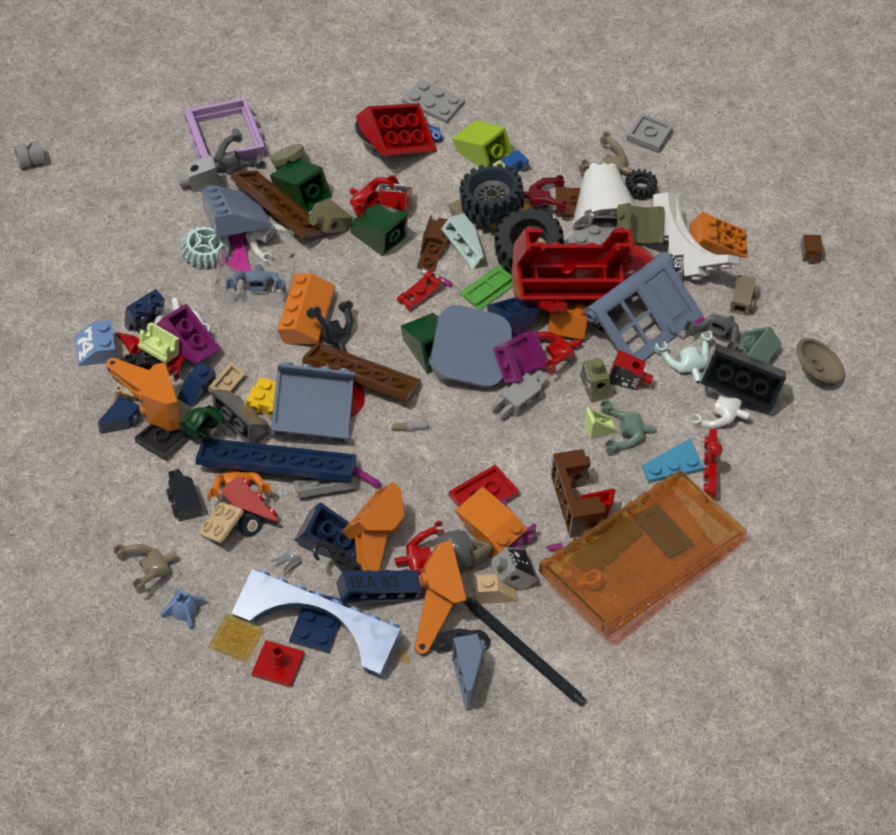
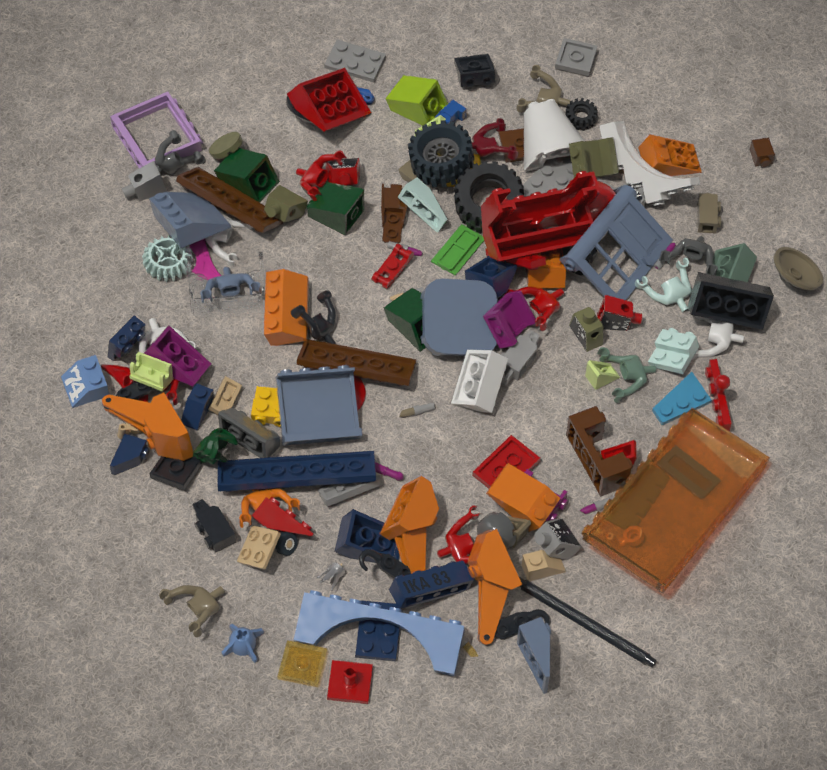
camera: 10 degrees left, 5 degrees up
(477, 408) = (479, 380): none -> white slope
(546, 128) = (475, 70): none -> black plate
(677, 415) = (674, 350): none -> light aqua plate

